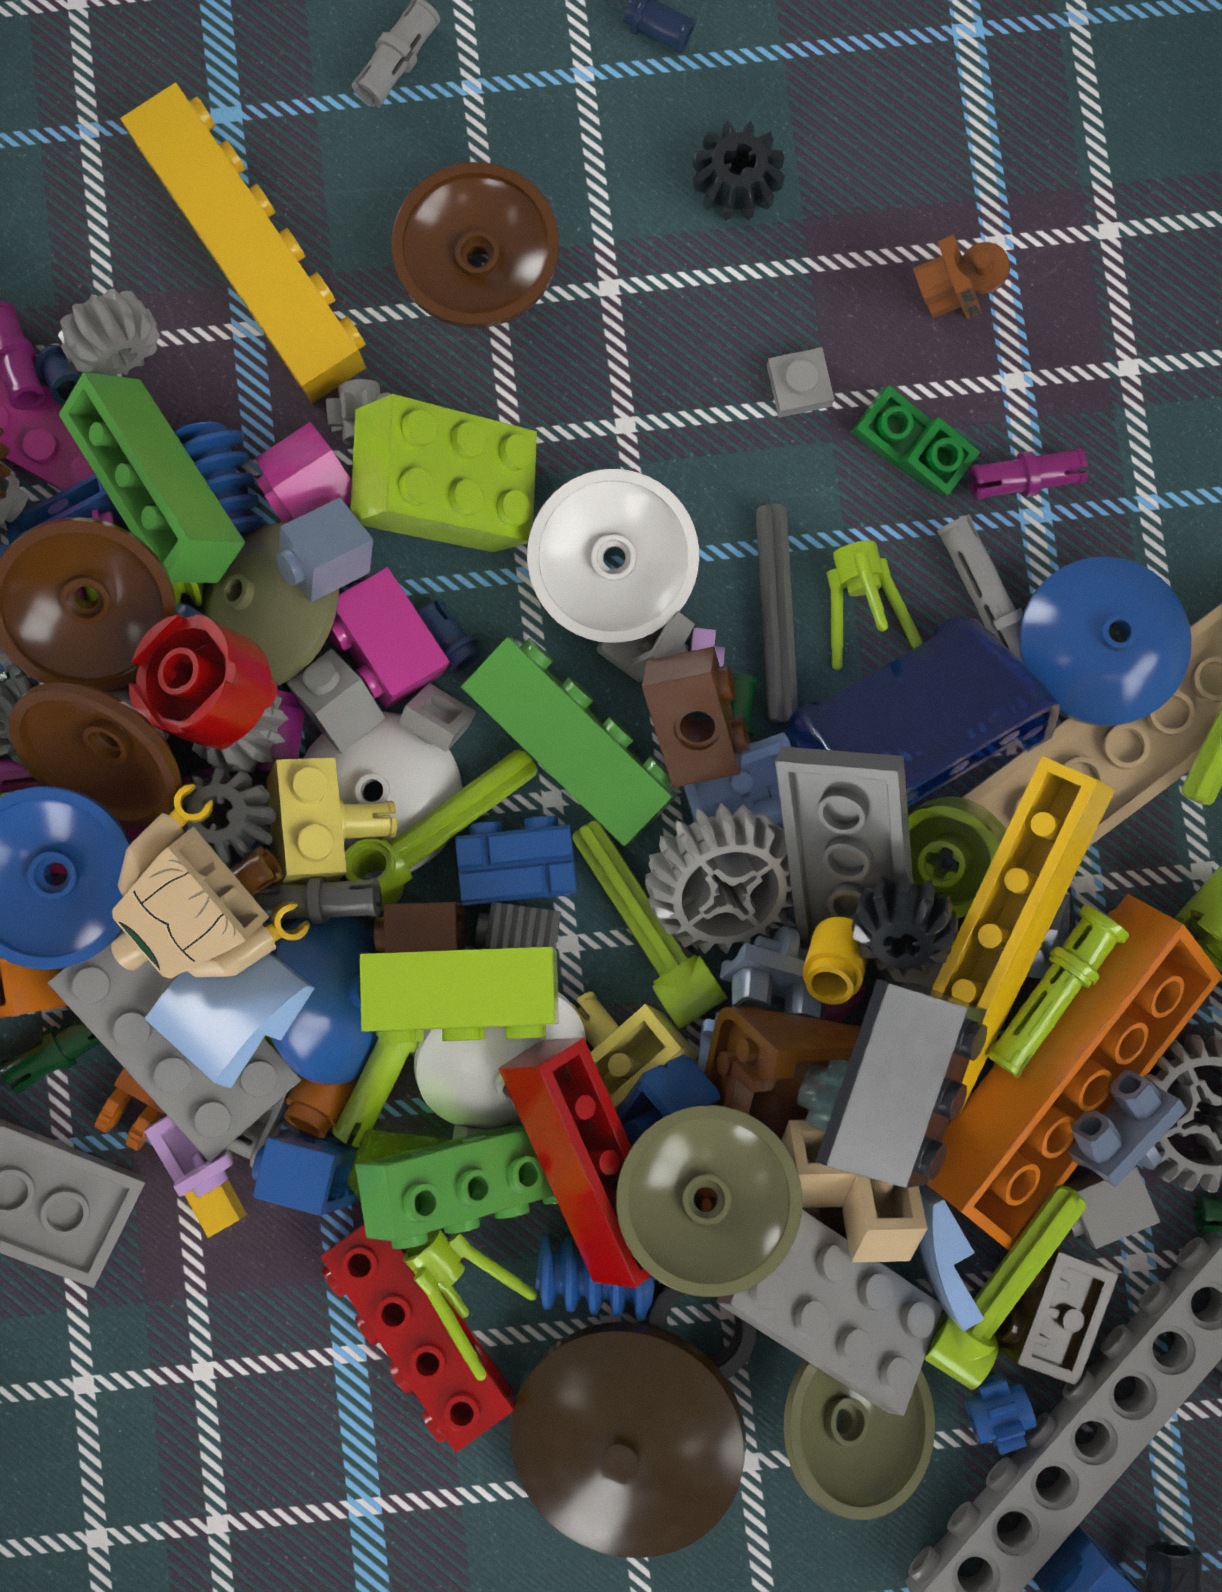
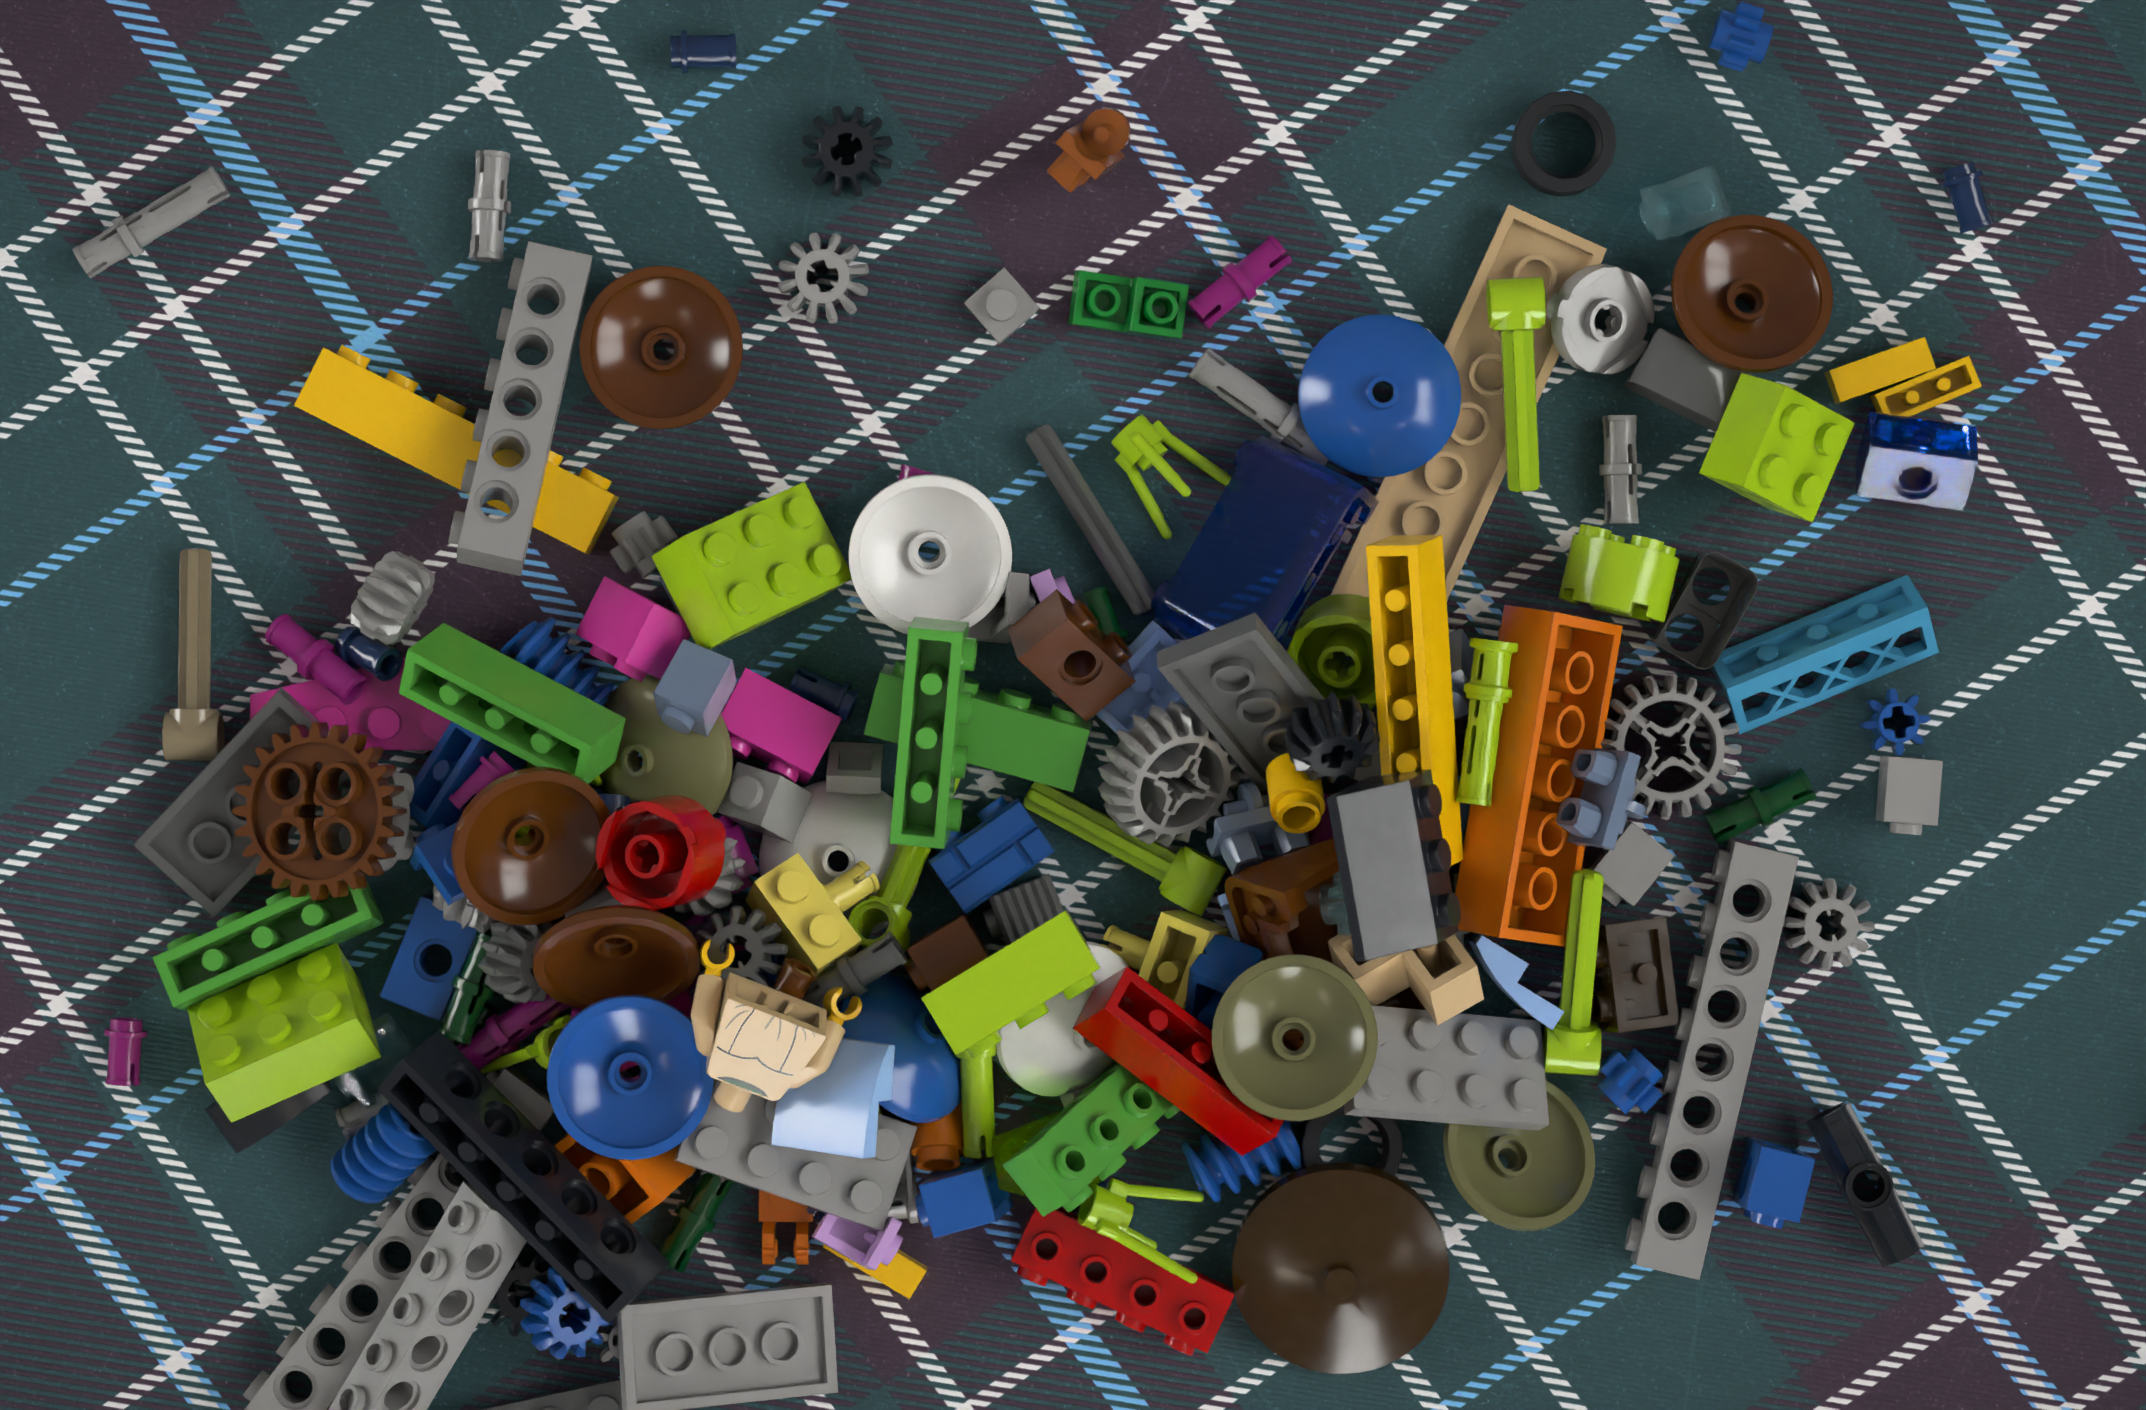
camera: 30 degrees left, 5 degrees up
(234, 322) = (504, 541): none -> light grey brick
(520, 712) = (929, 732): none -> bright green brick
(650, 248) = (812, 292): none -> light grey gear

